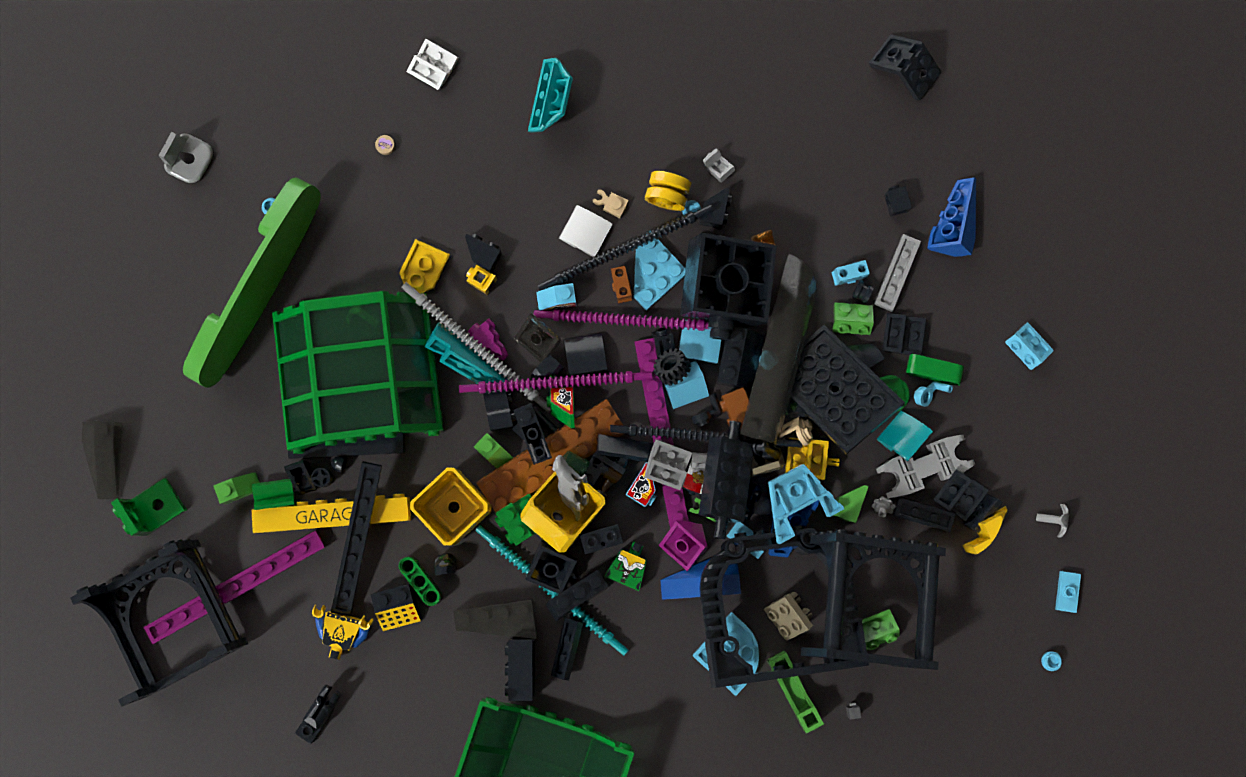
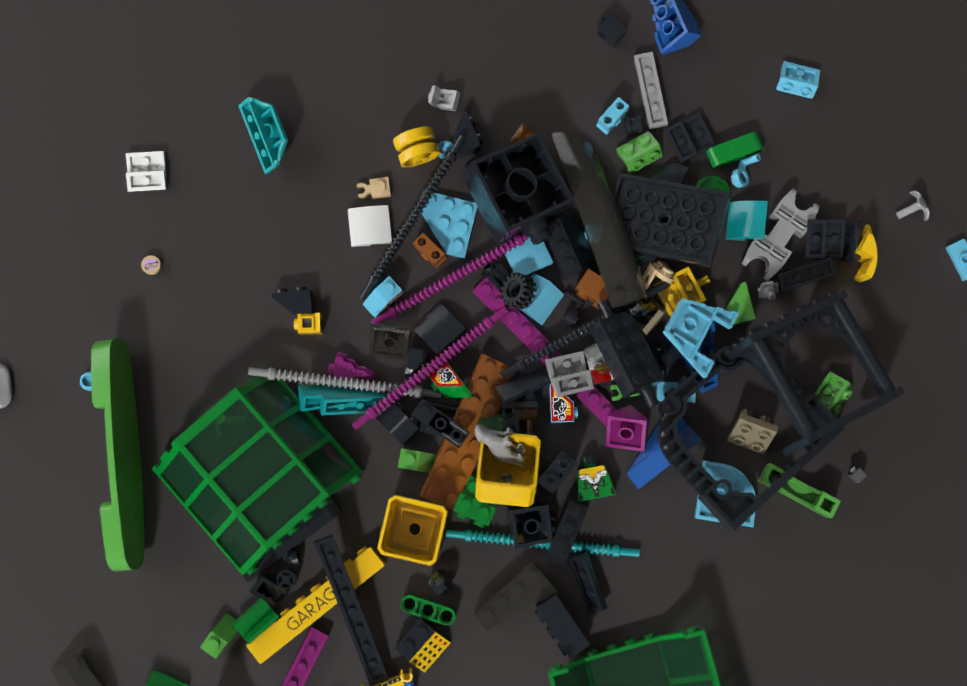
camera: 30 degrees left, 0 degrees up
(423, 266) = (252, 345): yellow tile -> none

